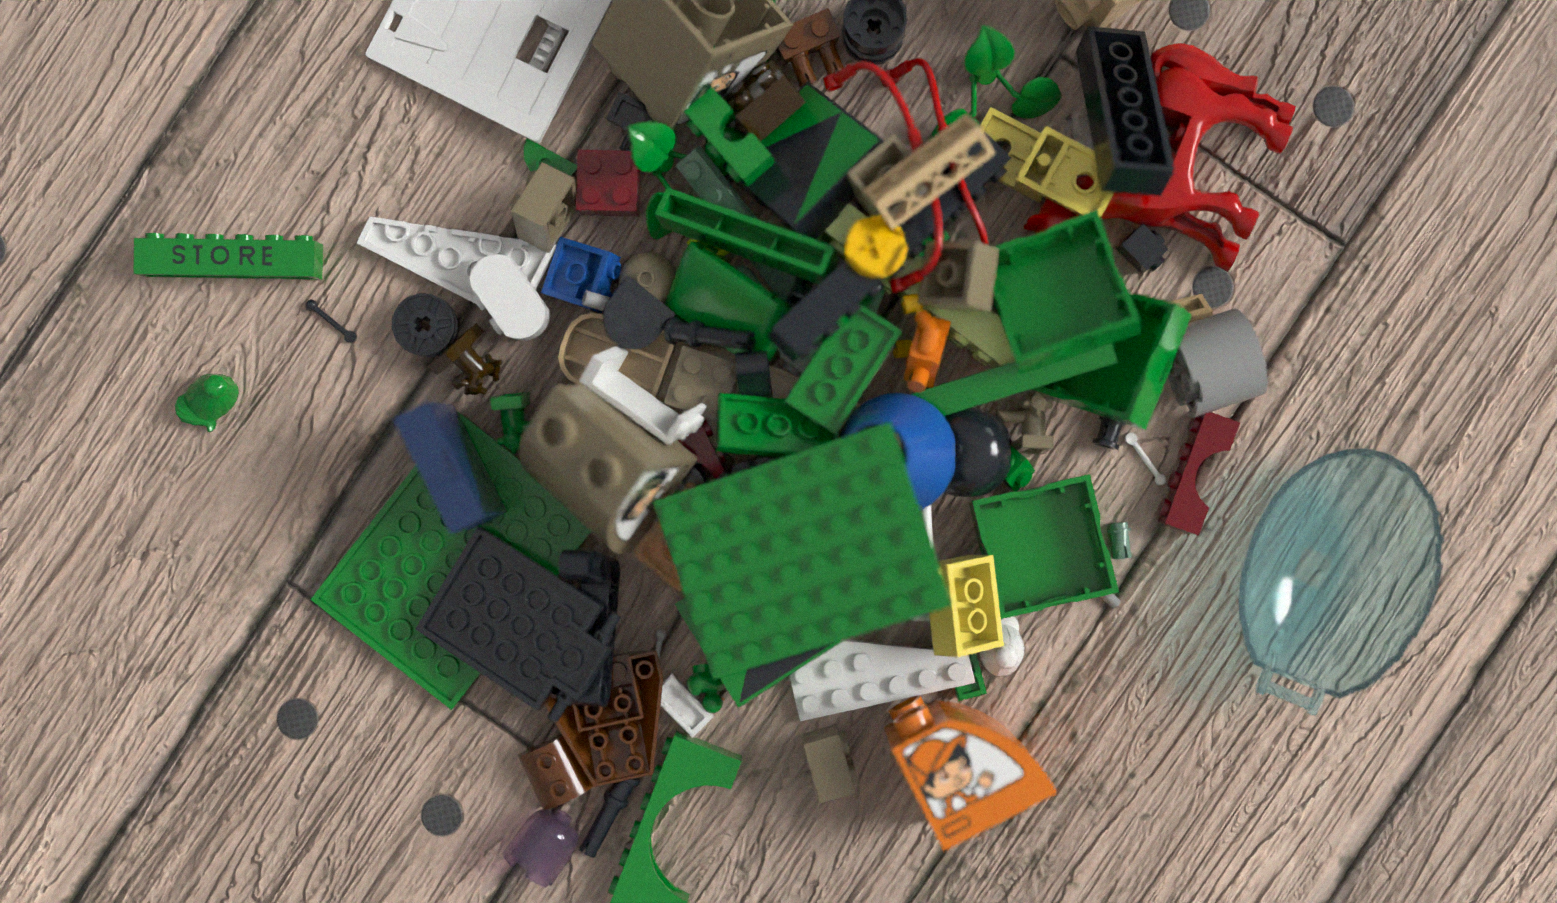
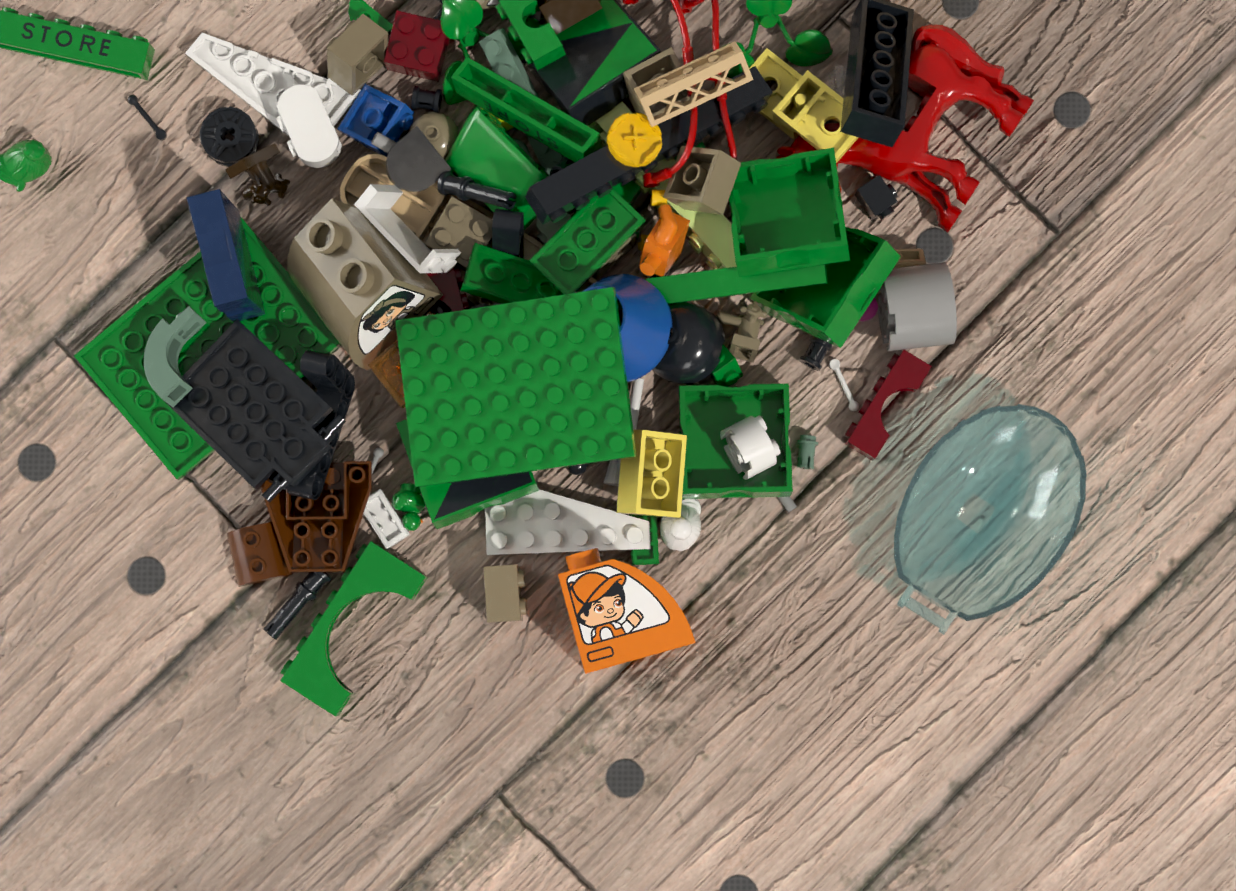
camera: 10 degrees right, 5 degrees down
(406, 583) = (163, 352): none -> sand green arch
(512, 417) = (288, 228): green piece -> none
(543, 846) = (232, 615): clear purple cylinder -> none
(630, 240) = (426, 99): none -> black bush
(1063, 552) = (750, 446): none -> white brick

